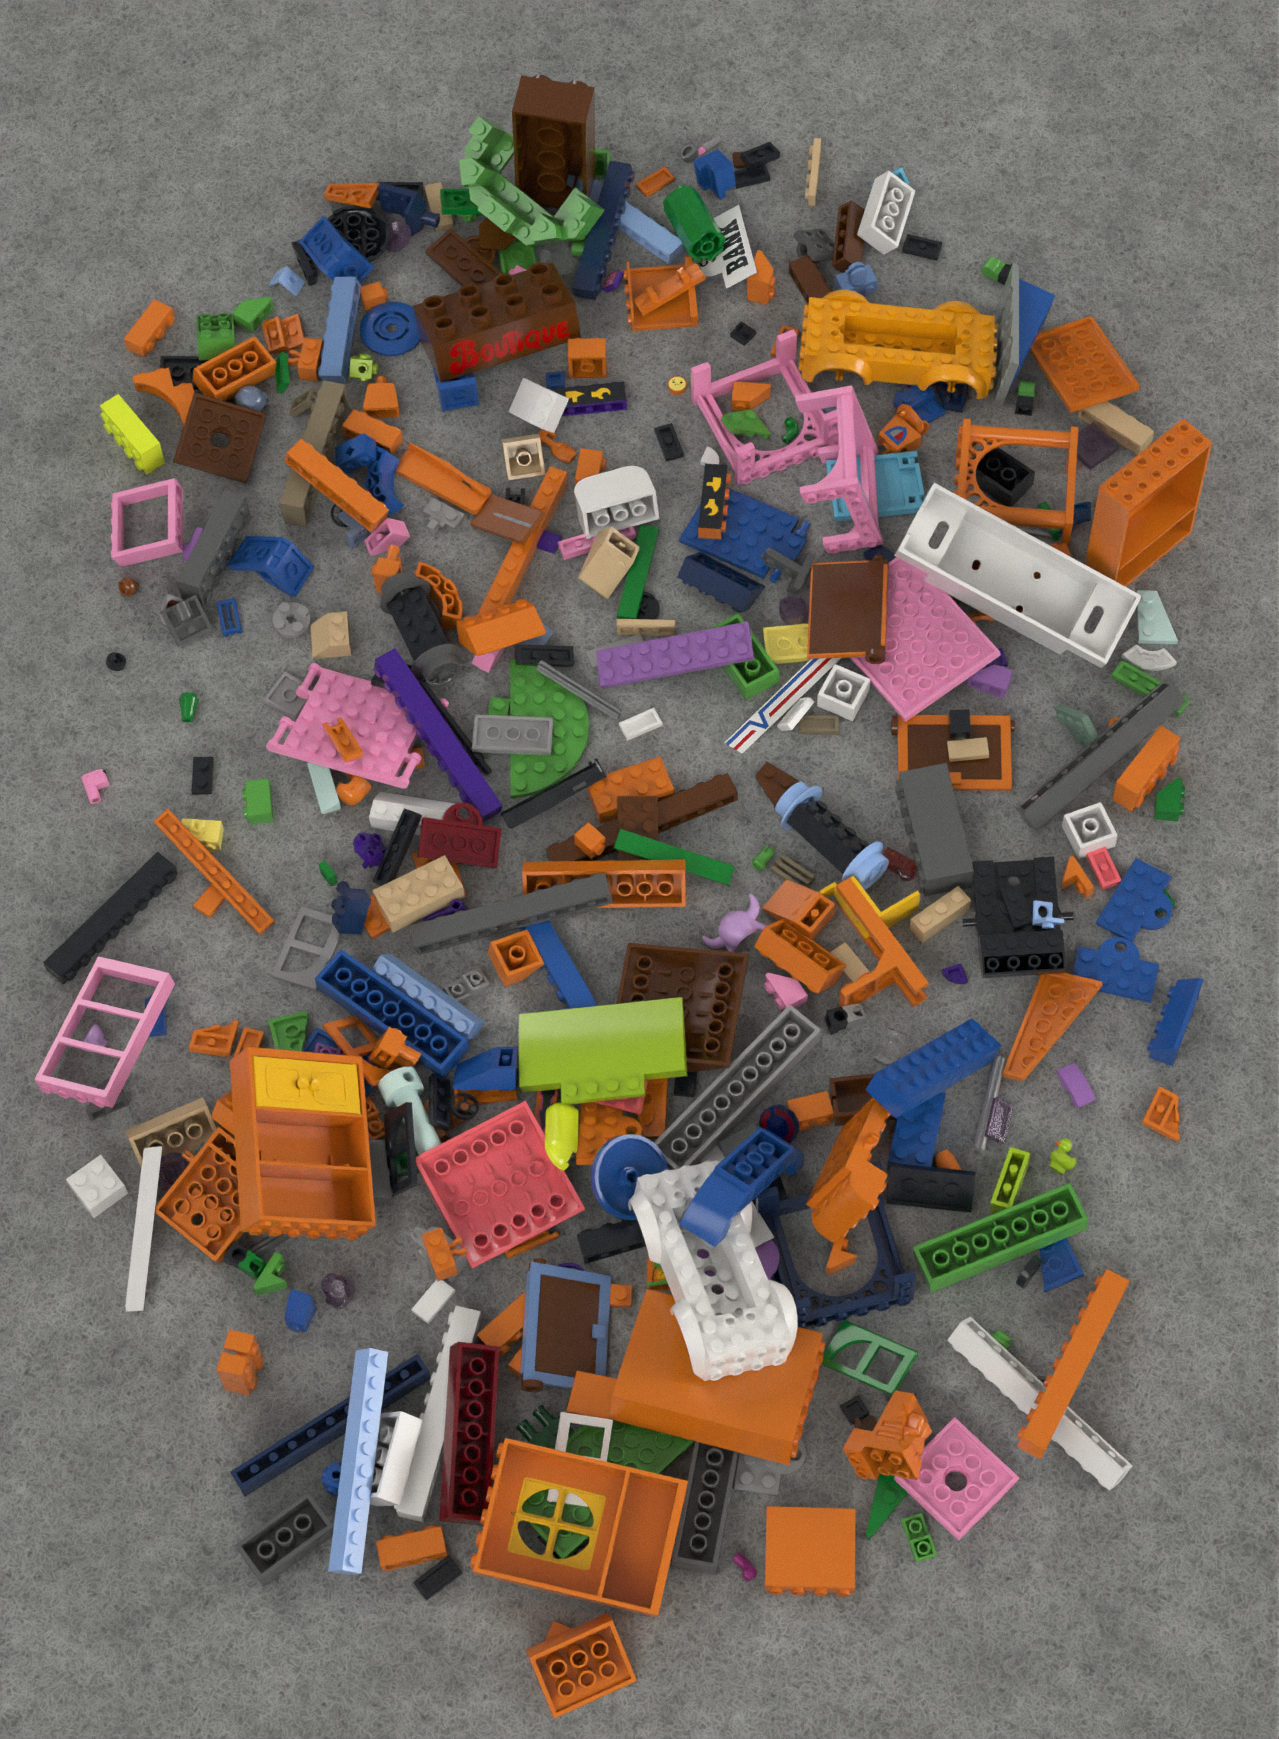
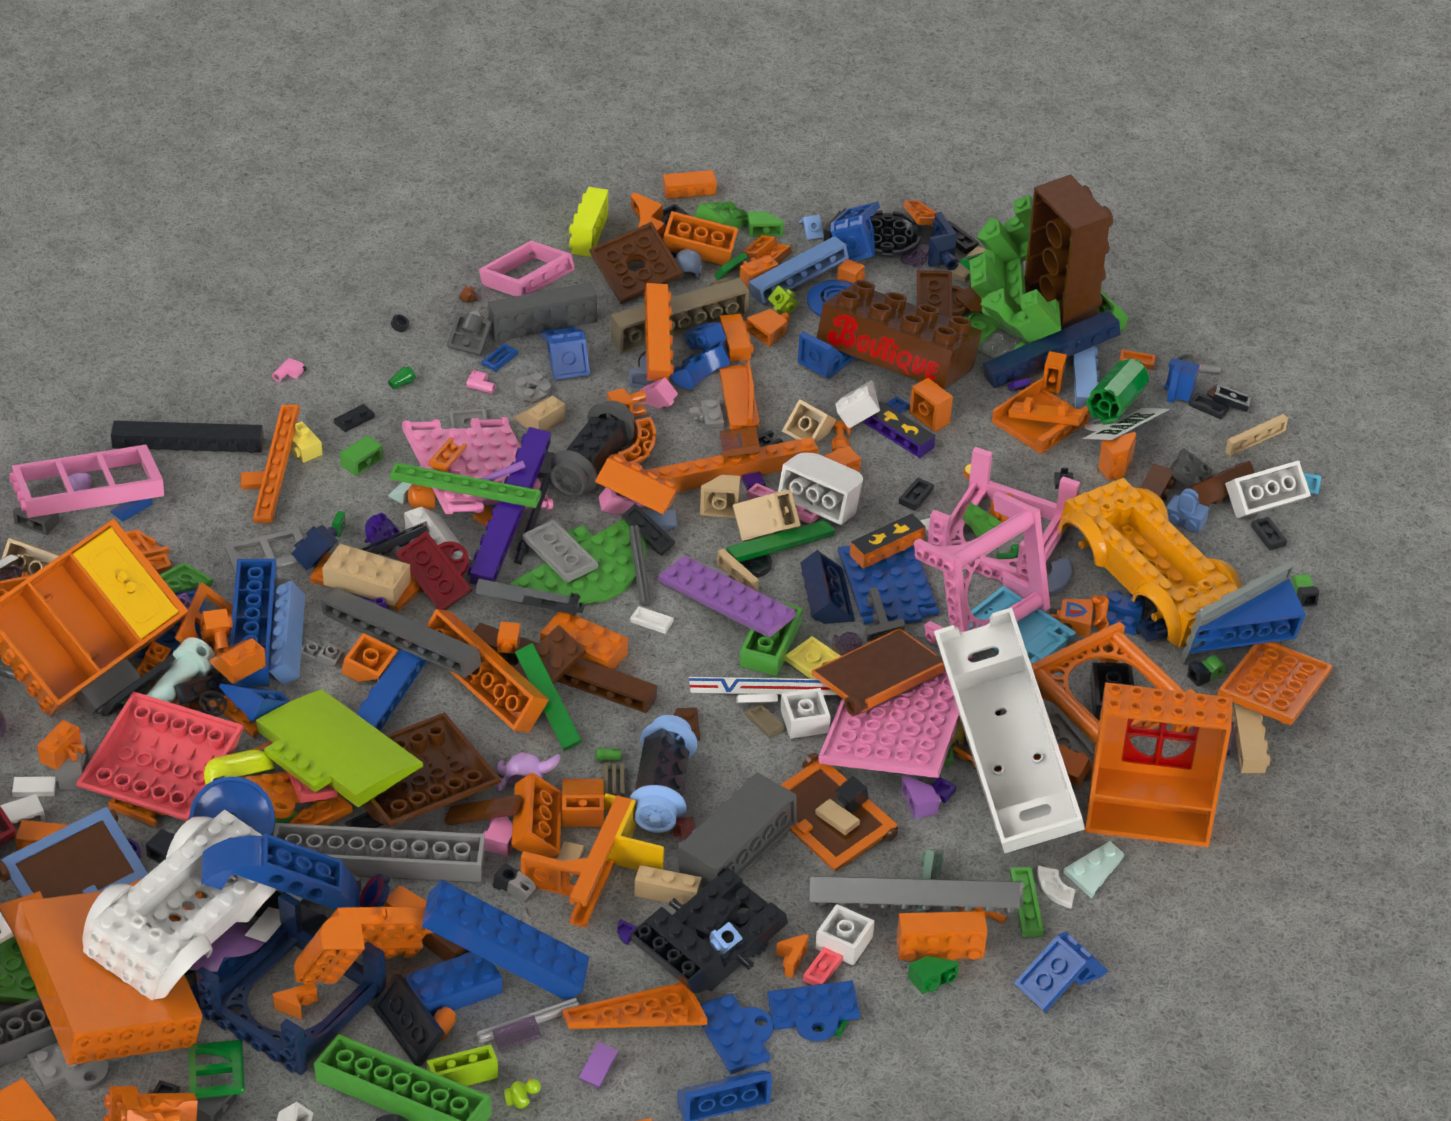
camera: 45 degrees right, 20 degrees down
(245, 654) = (478, 381): none -> bright pink piece
(393, 752) = (465, 485): none -> bright green tile
(403, 719) = (505, 471): none -> medium lavender bar
(442, 1054) = (240, 660): none -> orange slope
(561, 576) = (719, 496): none -> tan slope
(629, 248) = (1054, 372): none -> orange brick
(764, 983) = (483, 810): none -> reddish brown tile
(1239, 720) = (1057, 969): none -> bracket

